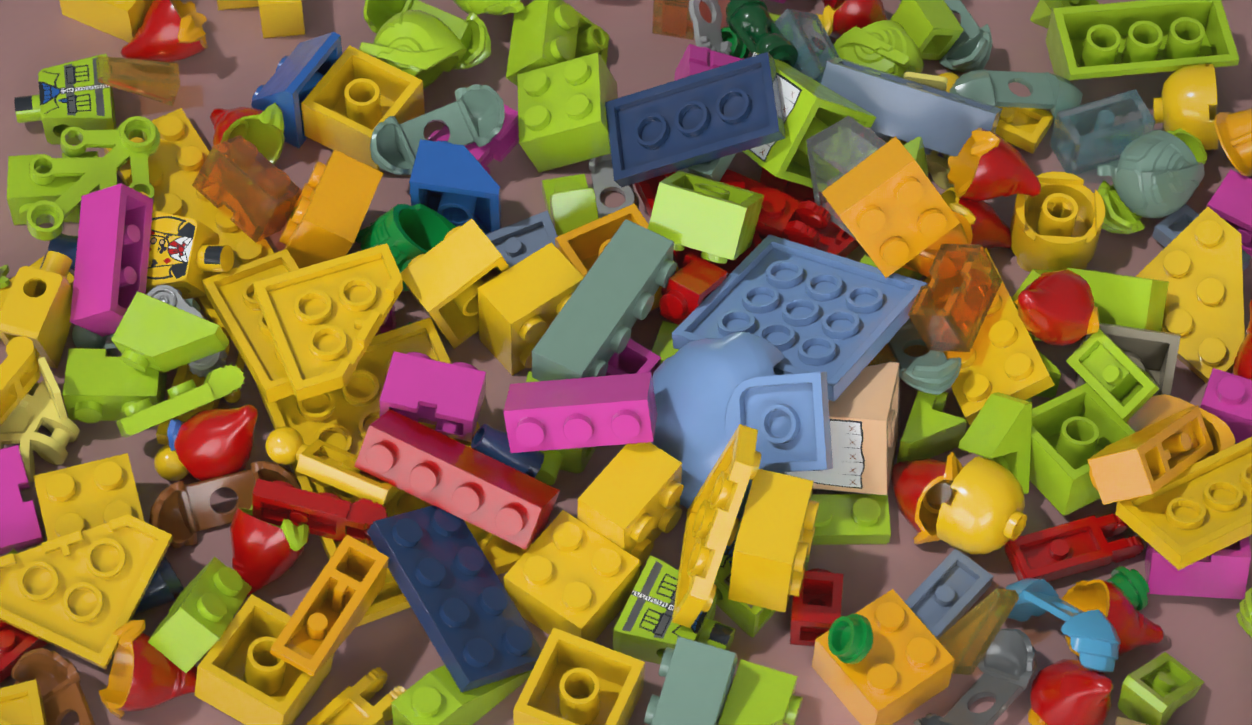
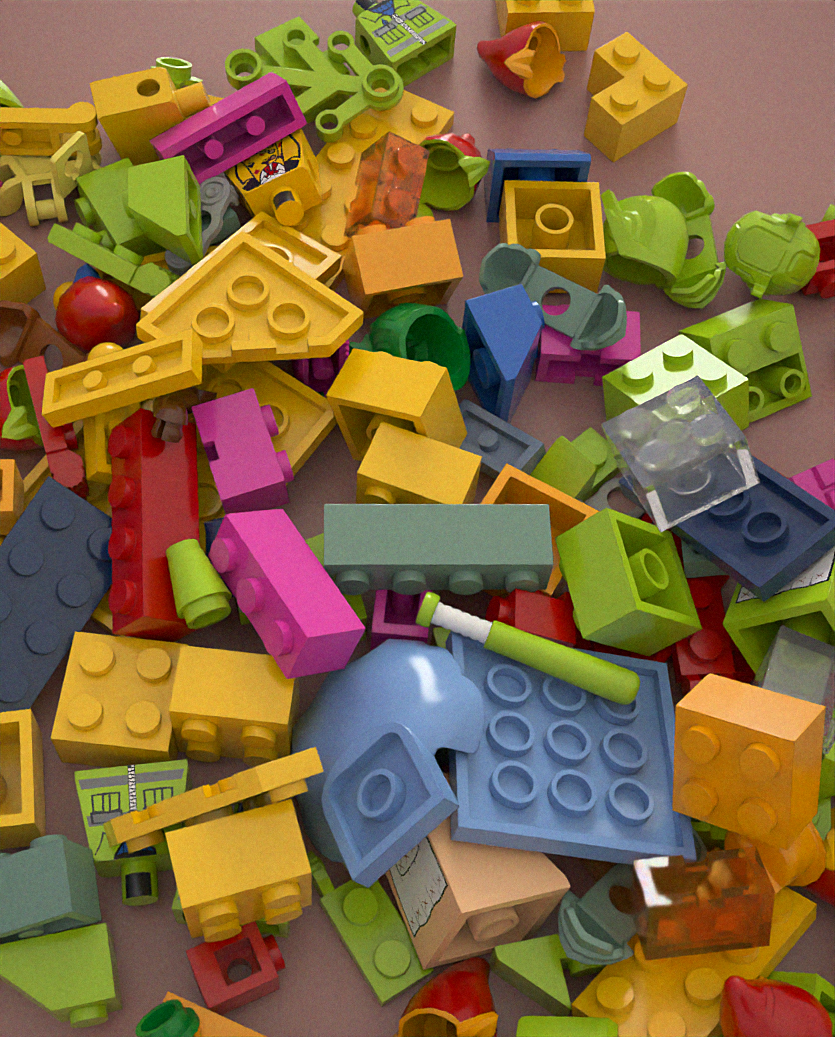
camera: 55 degrees right, 5 degrees up
(141, 77) = (455, 63): clear yellow piece -> none
(337, 422) = (123, 378): none -> yellow plate
(373, 408) = (173, 410): none -> reddish brown arm
(535, 466) = (196, 585): none -> lime cone
(637, 122) = (681, 453): none -> clear brick
(728, 290) = (537, 652): none -> lime piece

